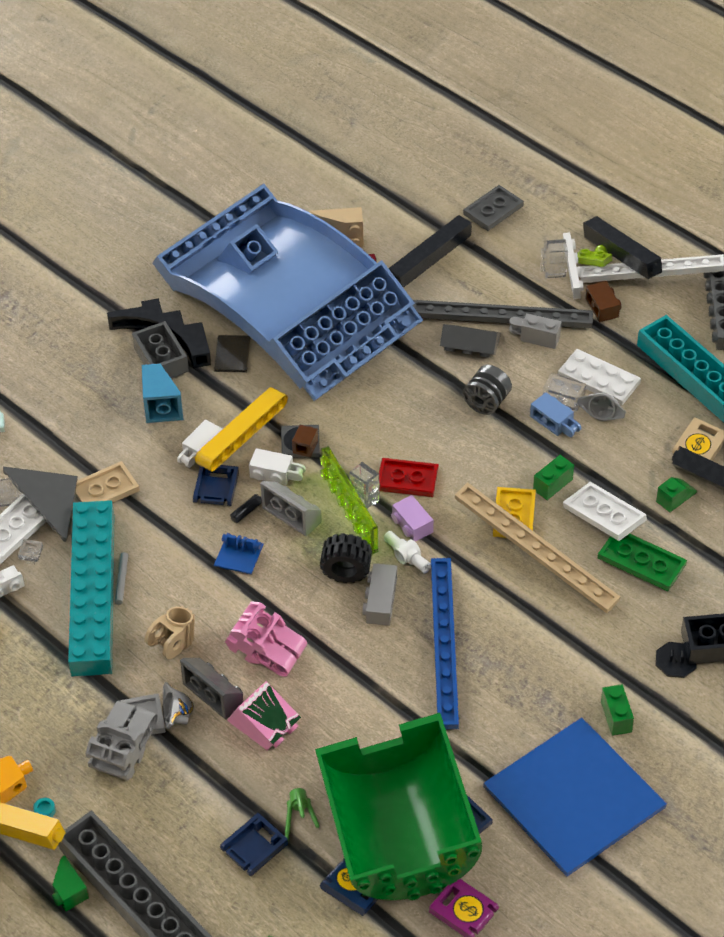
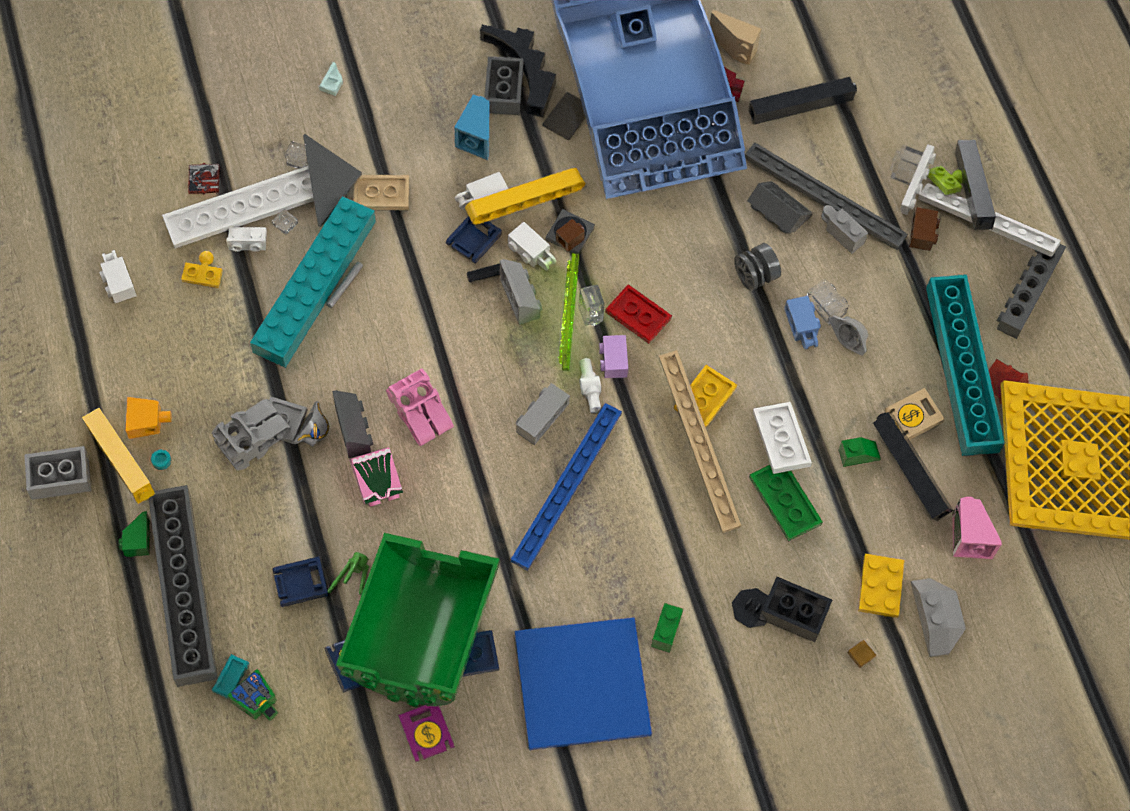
camera: 25 degrees right, 15 degrees up
(177, 621) = (348, 364): tan piece -> none
(238, 553) = (451, 312): blue hinge -> none
(345, 558) = (530, 366): black tyre -> none
(493, 207) = (889, 82): dark grey plate -> none
(553, 477) = (760, 381): green brick -> none
(600, 376) = (870, 302): white plate -> none

